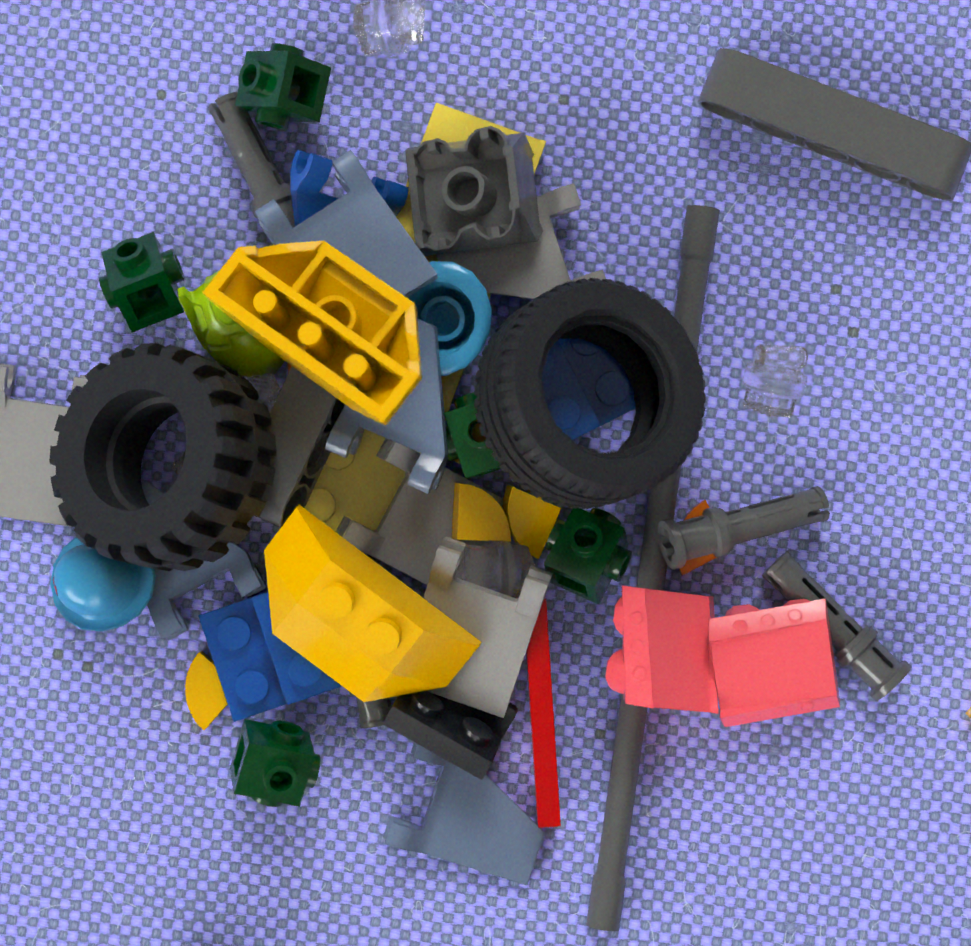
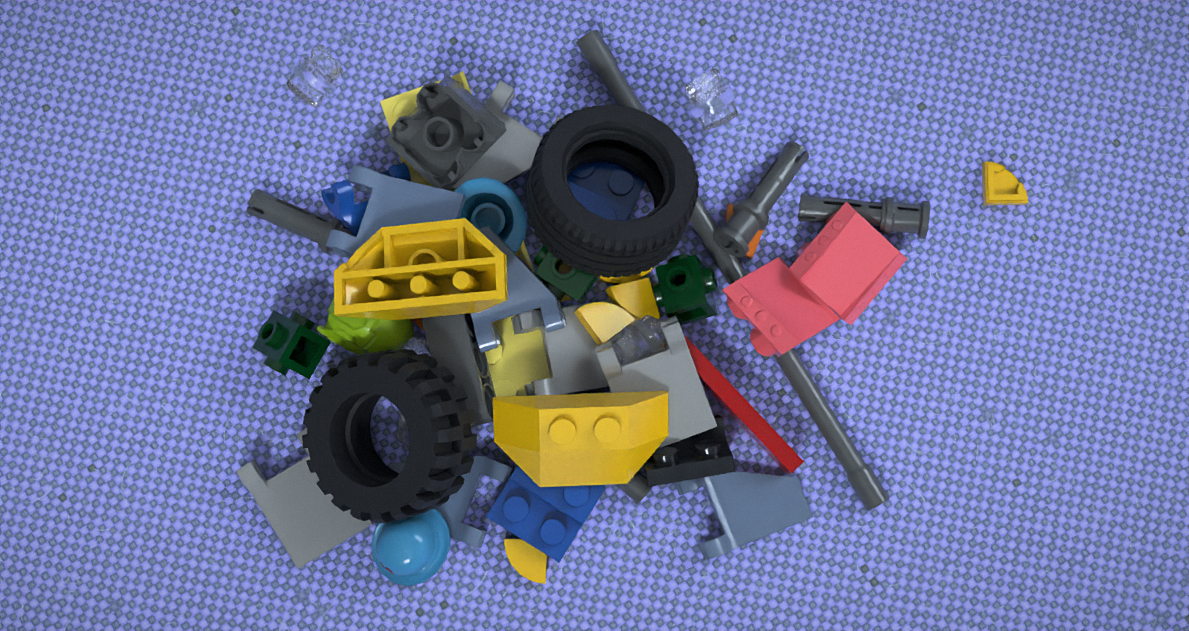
camera: 45 degrees left, 5 degrees down
(274, 763) = (603, 566): dark green brick -> none
(282, 86) = (281, 163): dark green brick -> none

